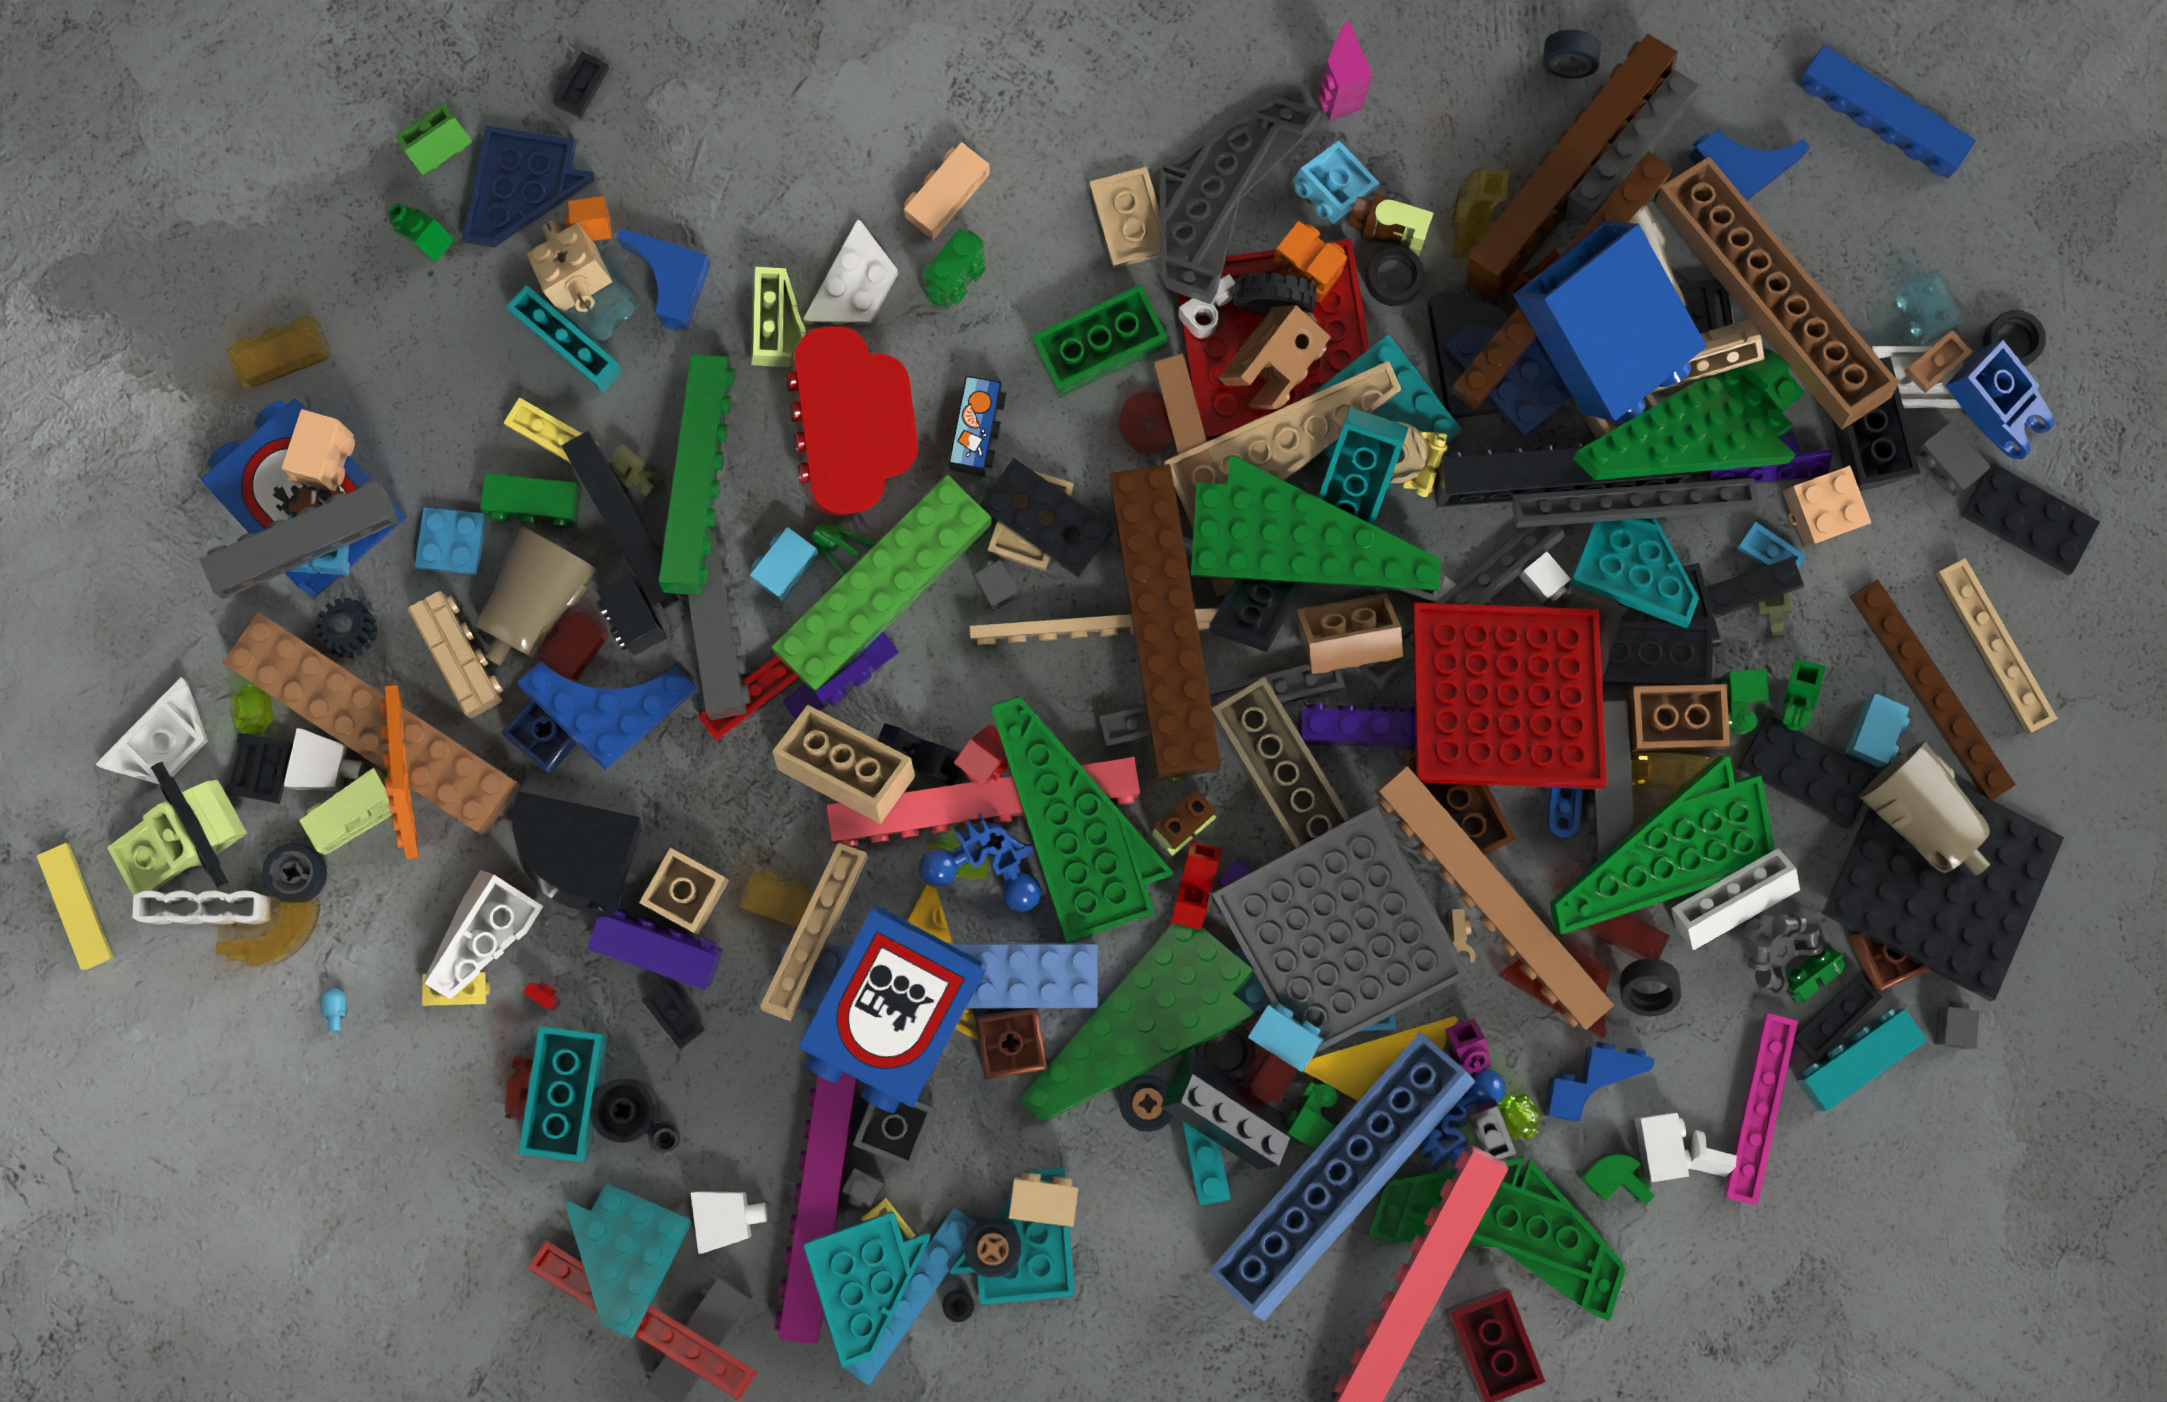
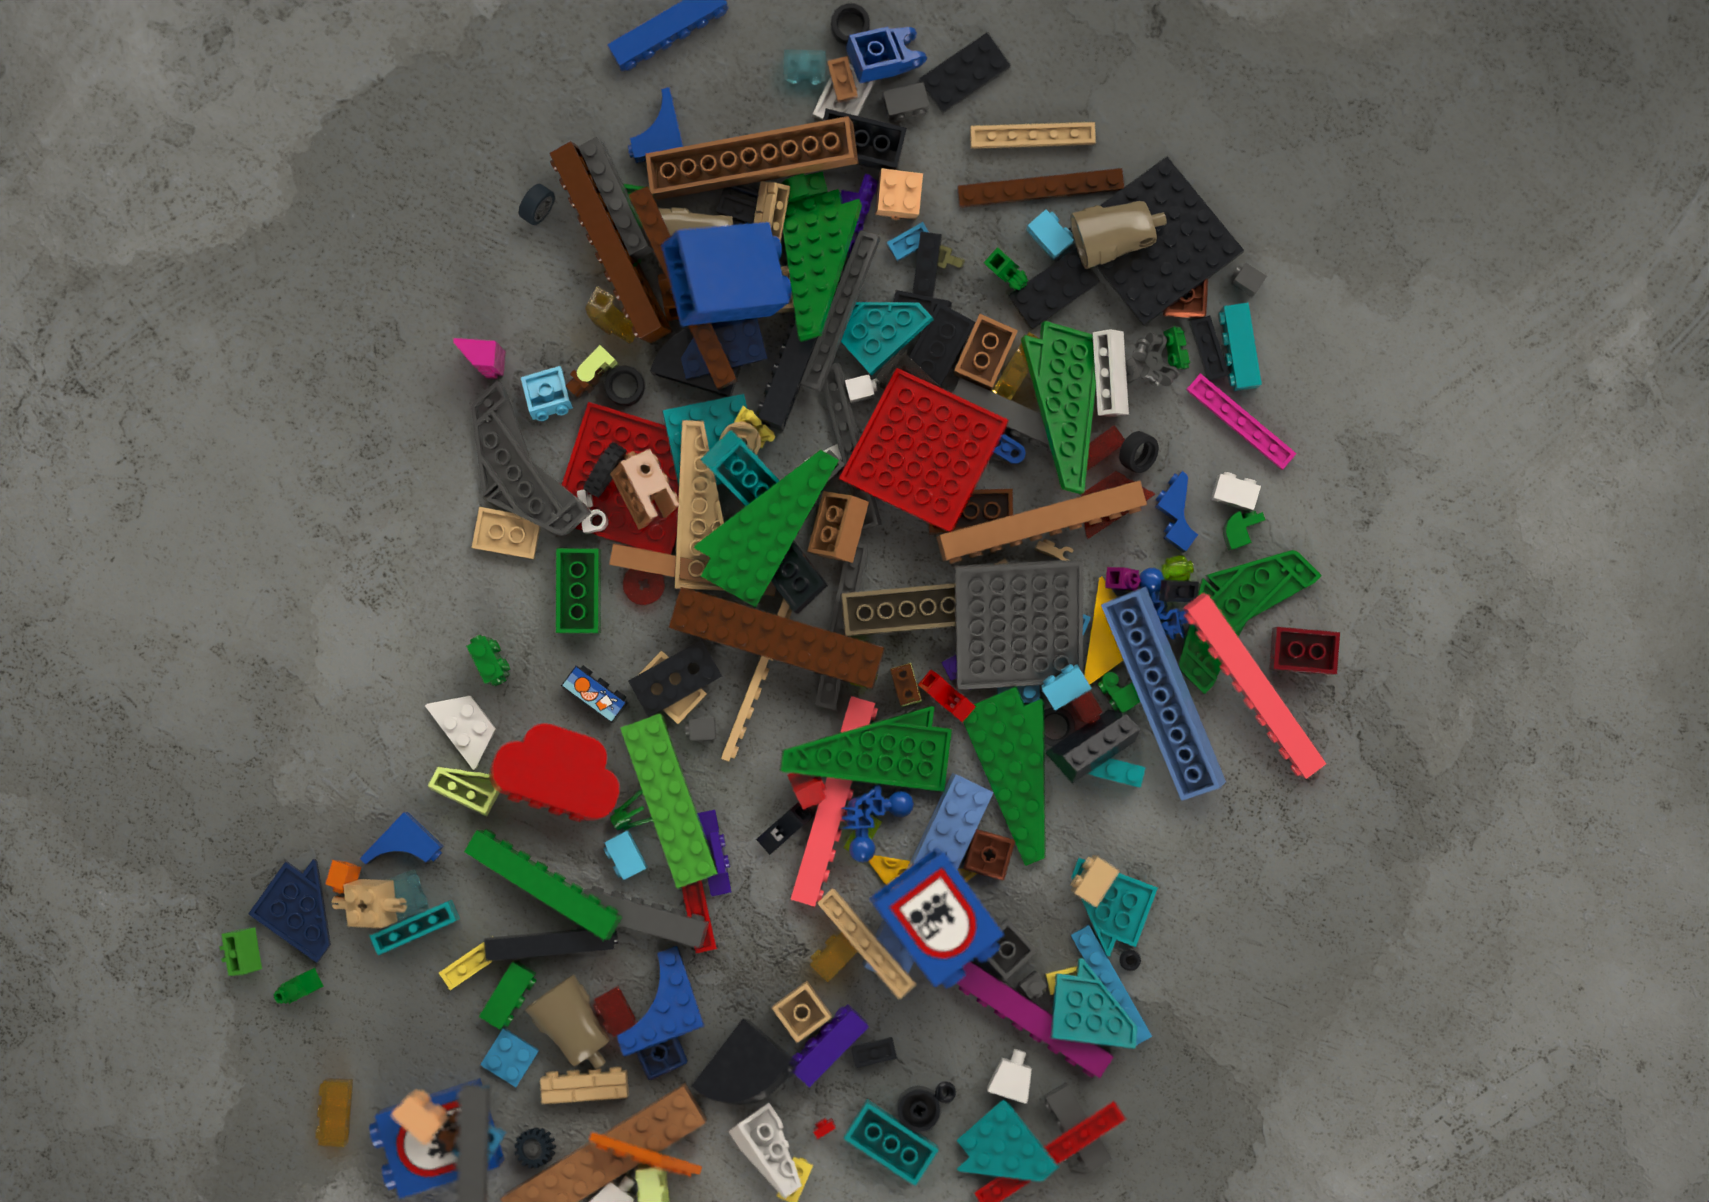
camera: 60 degrees left, 5 degrees up
(516, 1090) = (875, 1167): clear red plate -> none
(581, 84) = (249, 840): black plate -> none
(630, 471) = (520, 924): olive plate -> none
(631, 614) = (613, 965): black brick -> none
(844, 764) = (771, 877): tan brick -> none
(946, 190) = (433, 640): light nougat brick -> none
(990, 1262) = (1112, 928): black wheel -> none
(1141, 1097) = (1057, 786): black wheel -> none
(1310, 258) = (592, 436): orange brick -> none
(1356, 727) = (897, 550): dark purple brick -> none
(1709, 1159) = (1256, 468): white tile -> none
(1744, 689) = (986, 304): green brick -> none

